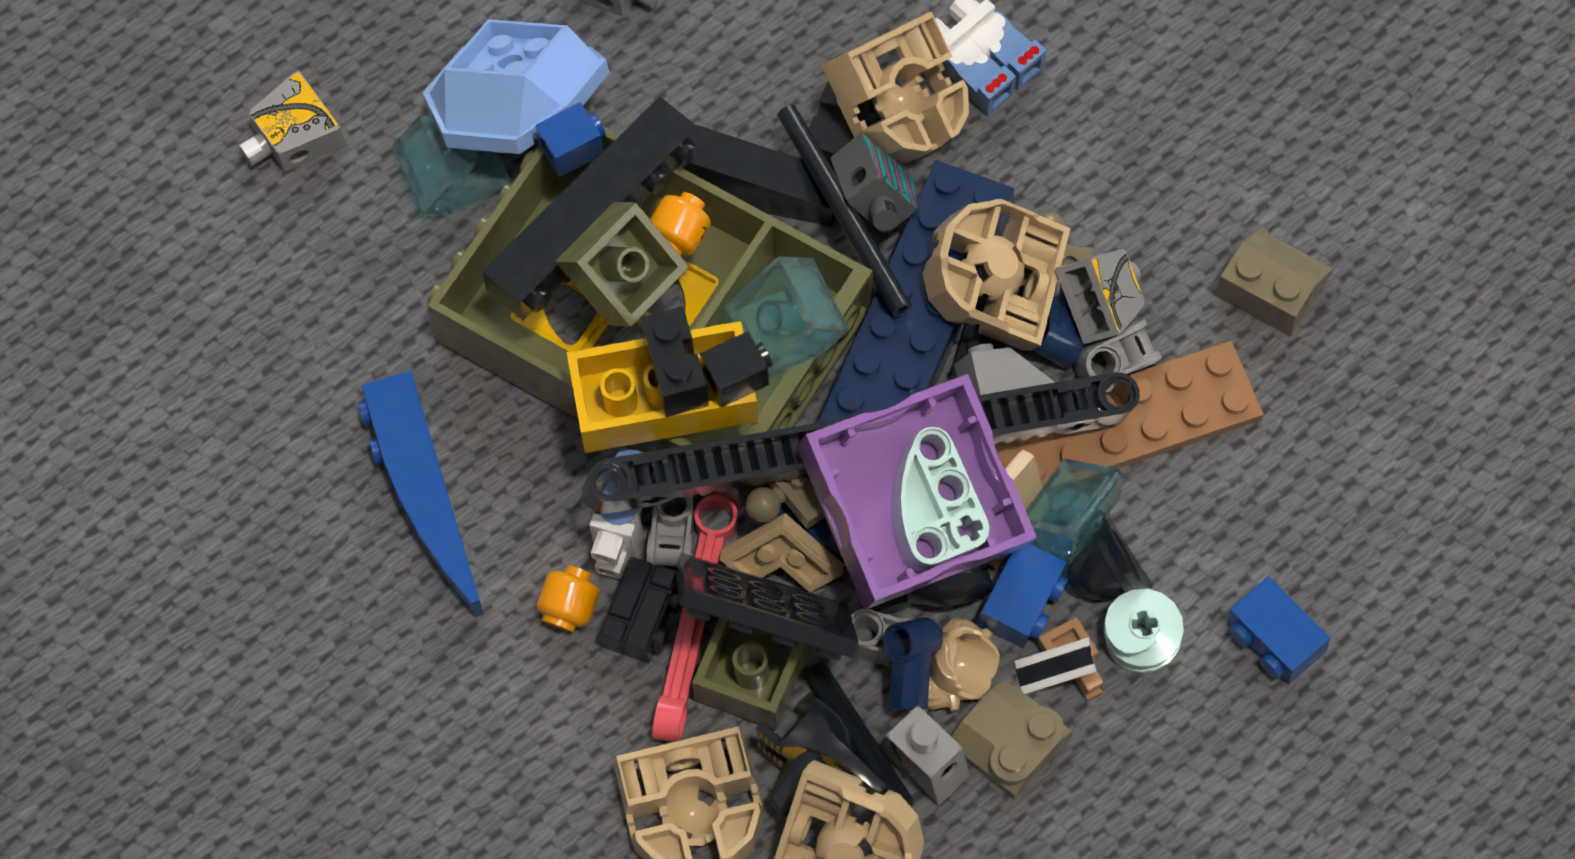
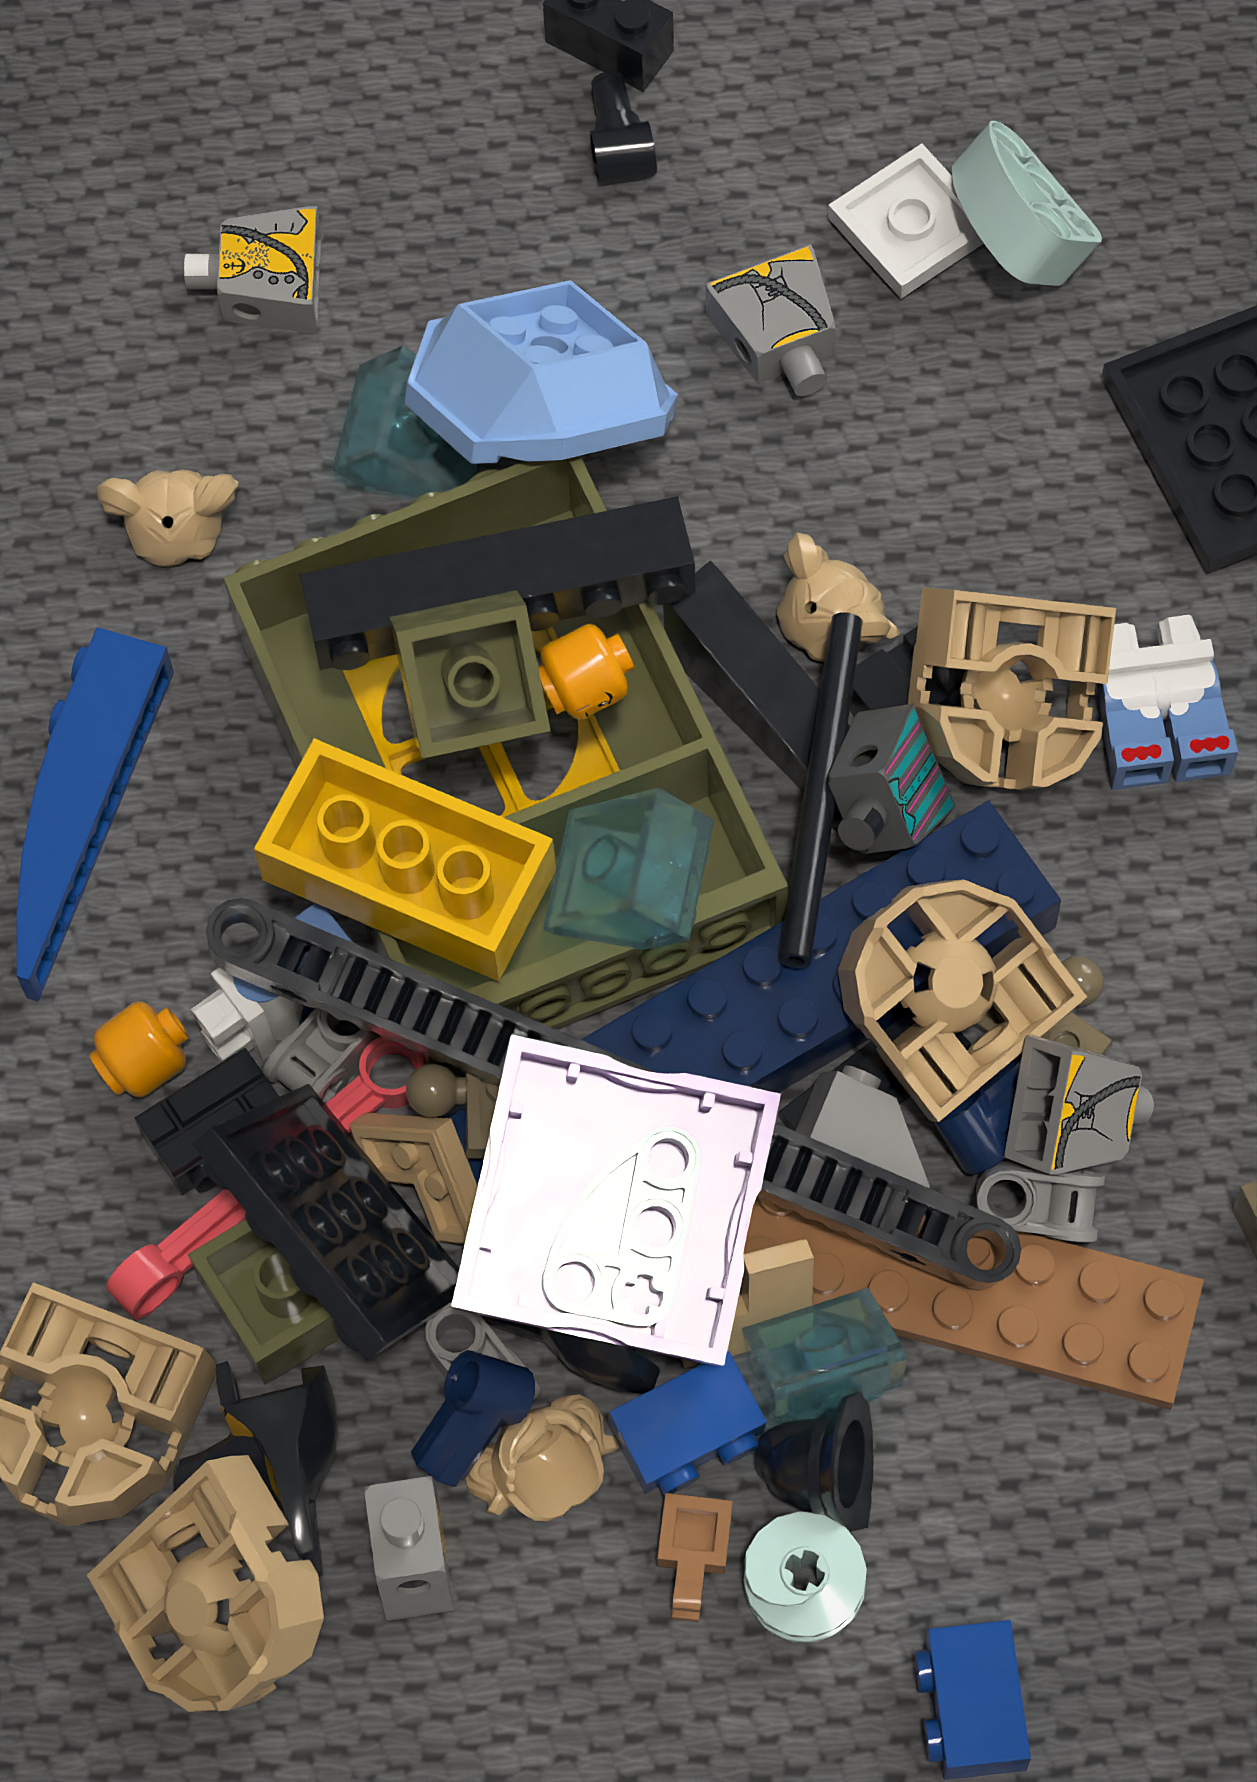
camera: 35 degrees right, 0 degrees up
(334, 291) = (185, 496): none -> tan hair
(570, 138) = (538, 481): blue brick -> none
(674, 362) = (409, 851): black brick -> none
(736, 368) = (491, 893): black brick -> none
(759, 100) = (834, 589): none -> tan hair
(863, 743) = (351, 1475): black axle -> none
(1010, 737) = (537, 1596): dark tan slope -> none
(1055, 666) = (656, 1545): sticker -> none

